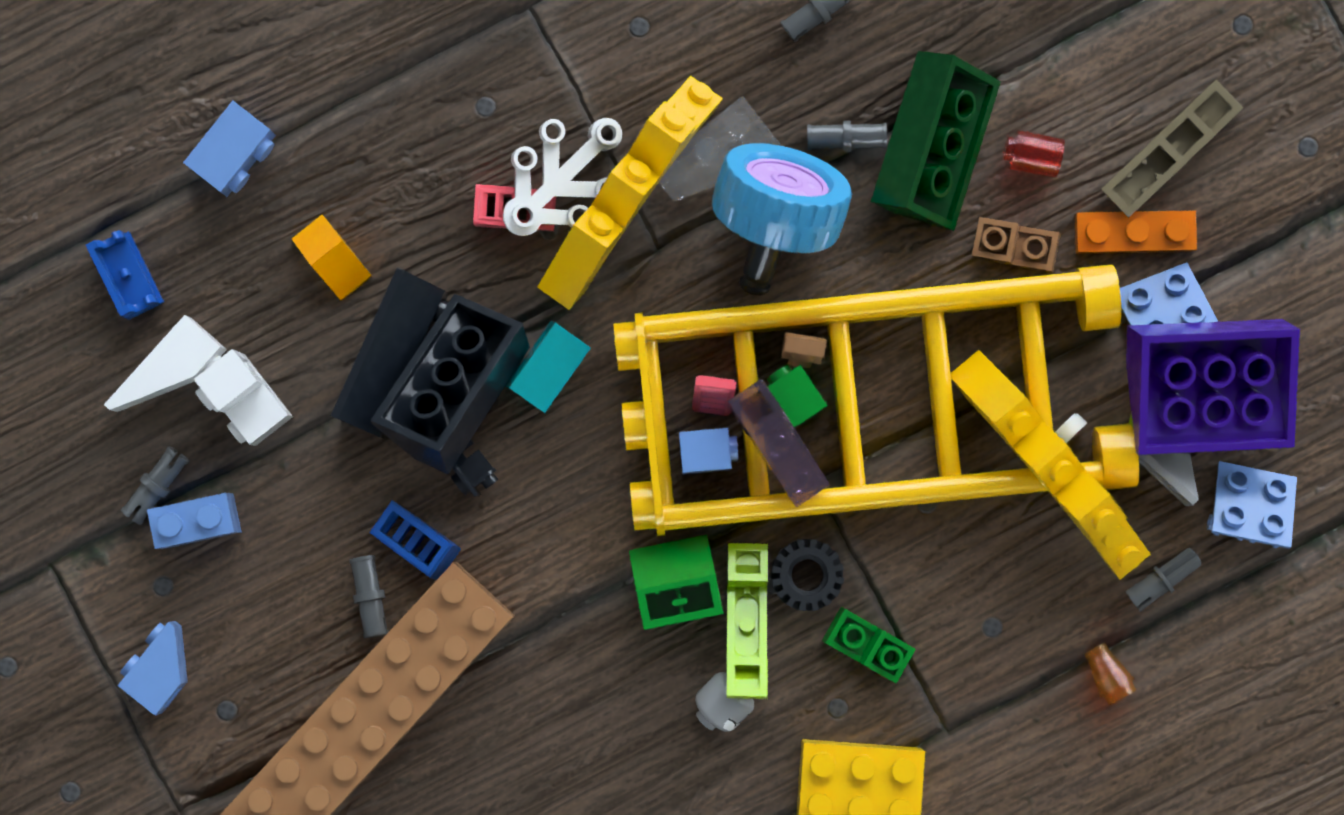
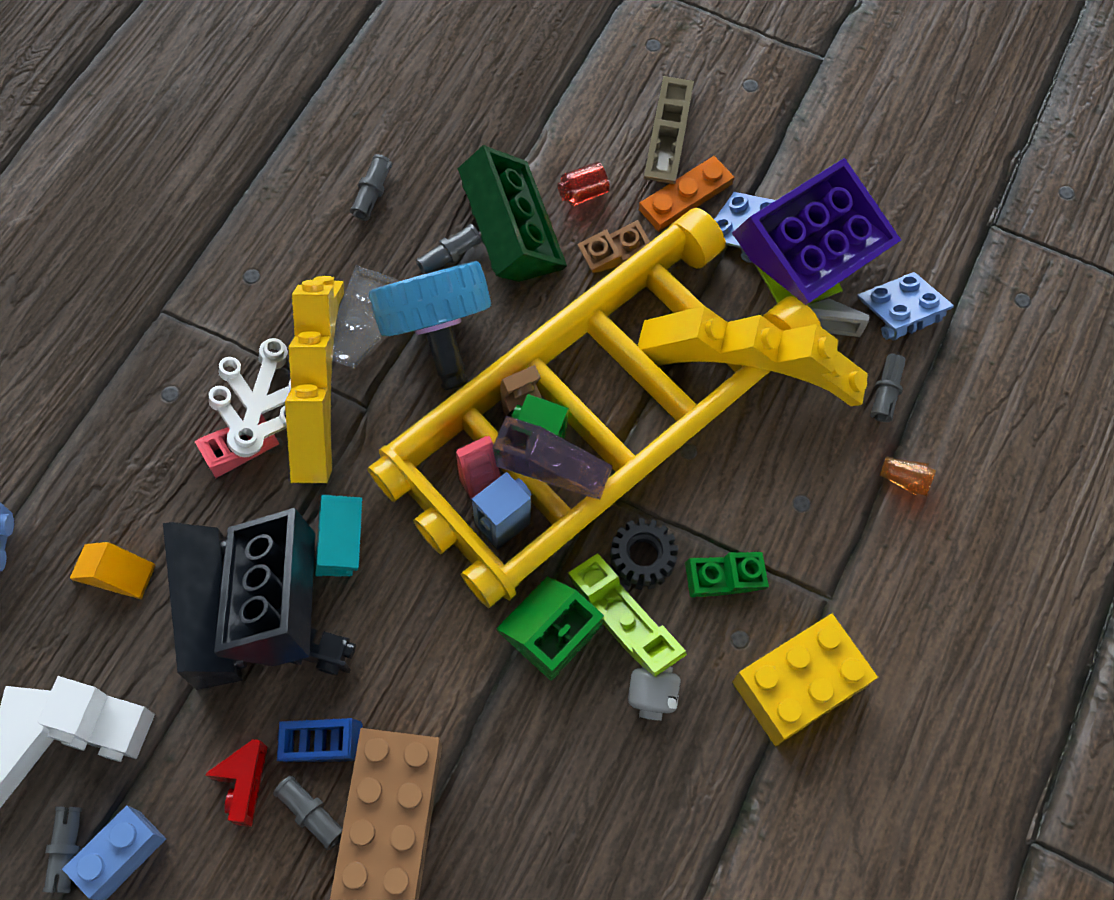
camera: 40 degrees left, 20 degrees down
(338, 526) = (246, 771): none -> red slope

